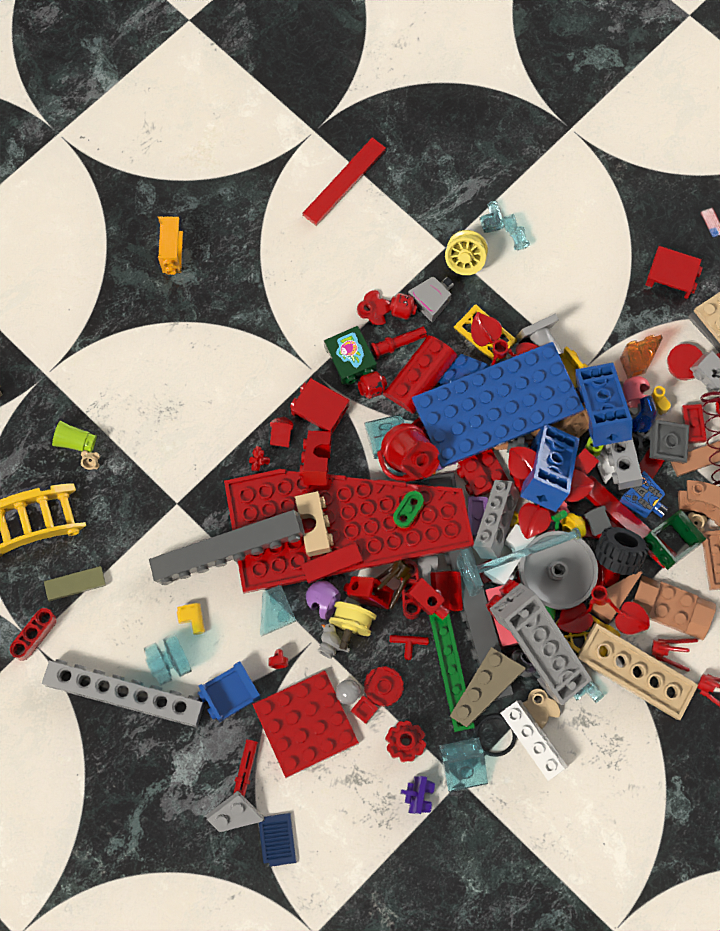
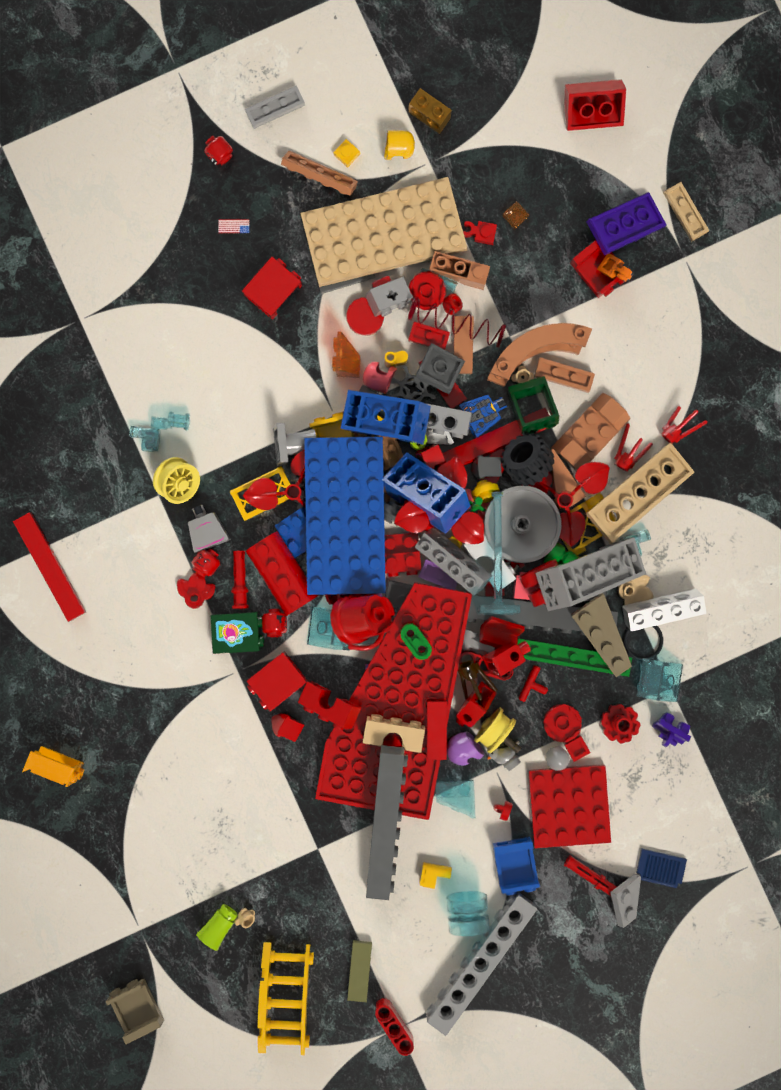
camera: 75 degrees left, 15 degrees up
(258, 459) = (306, 758): red plant -> none
(646, 416) = (411, 380): clear blue arm -> none

